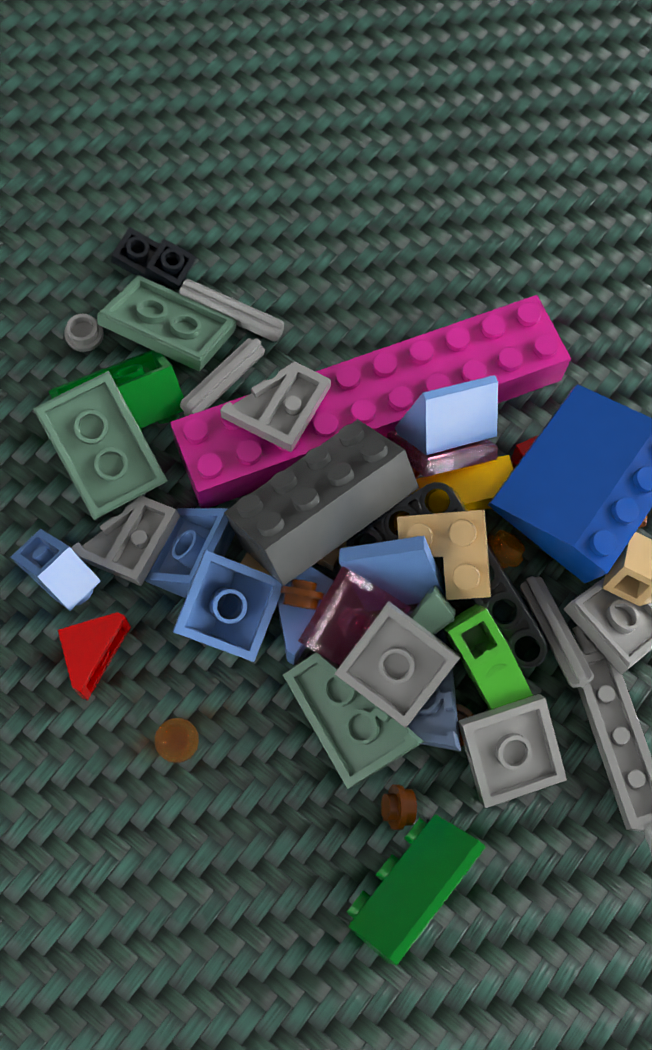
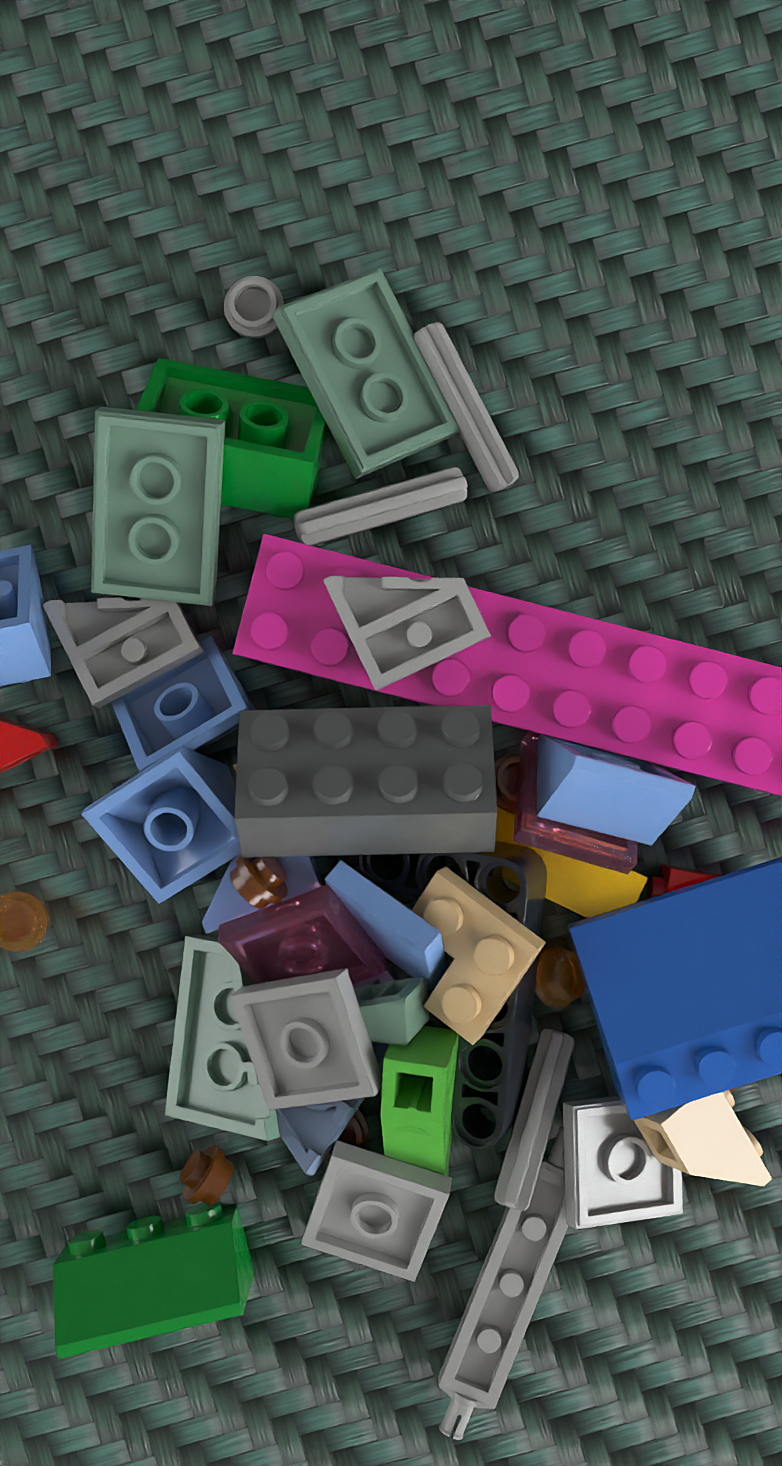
camera: 40 degrees right, 20 degrees up
(157, 262) = (418, 256): black slope -> none

